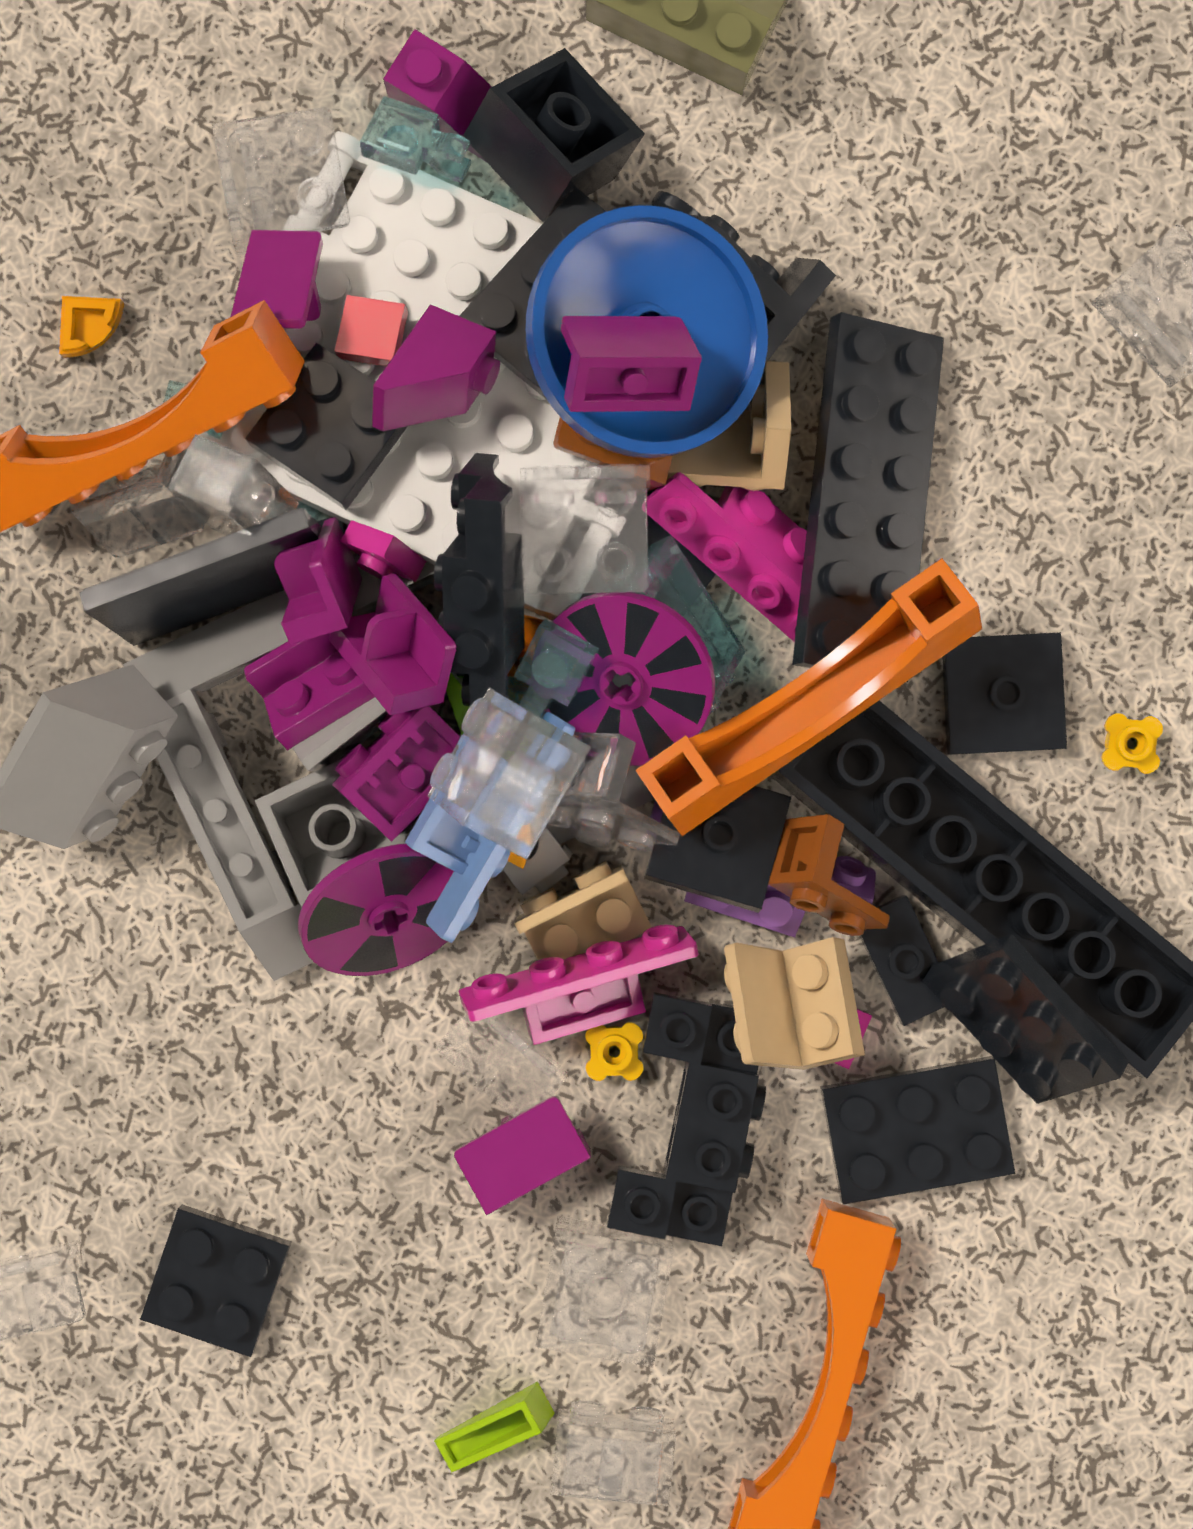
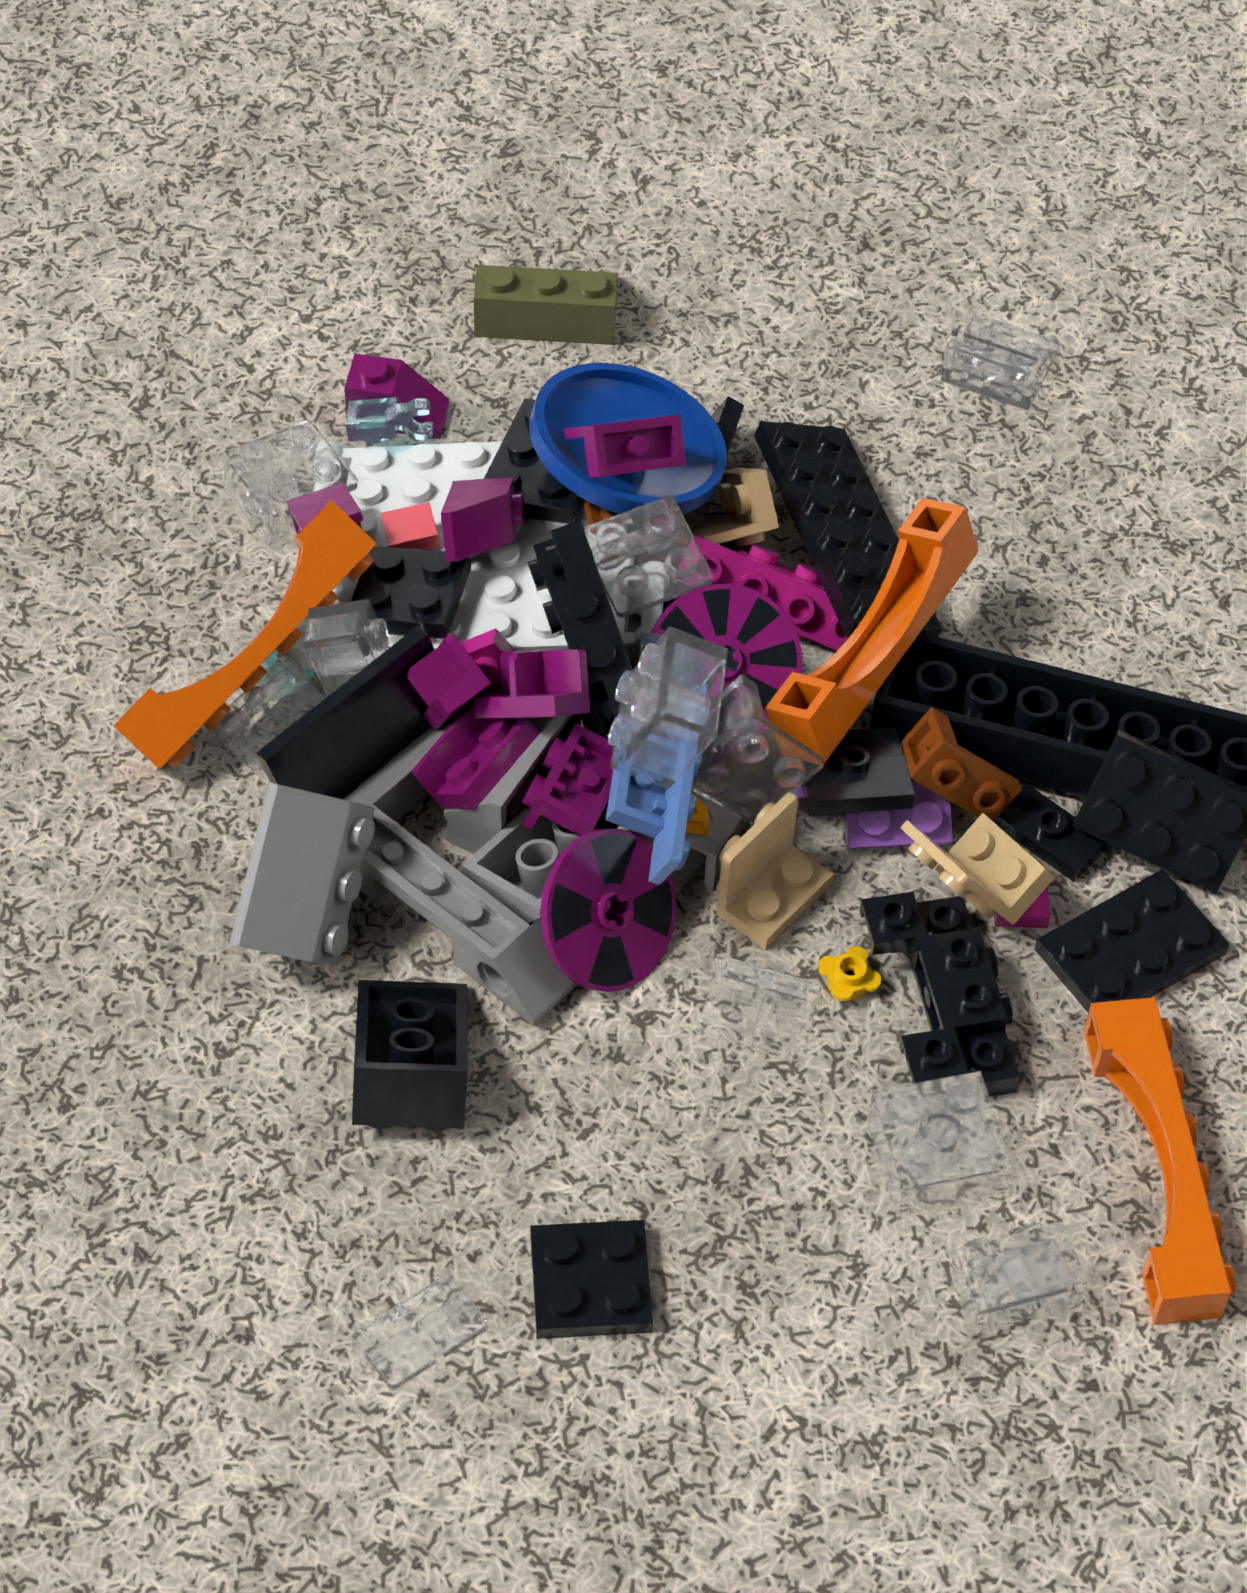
camera: 25 degrees left, 35 degrees down
(87, 323) = (168, 627): light orange tile -> none
(136, 969) = (410, 1055): none -> black slope
(496, 1428) = (901, 1307): lime piece -> none
(522, 1154) = (815, 1064): magenta panel -> none
(552, 133) = (483, 382): black brick -> none
(579, 990) = (801, 926): dark pink bracket -> none
(1005, 694) = (1023, 623): black plate -> none
(1119, 731) = (1136, 638): yellow plate -> none

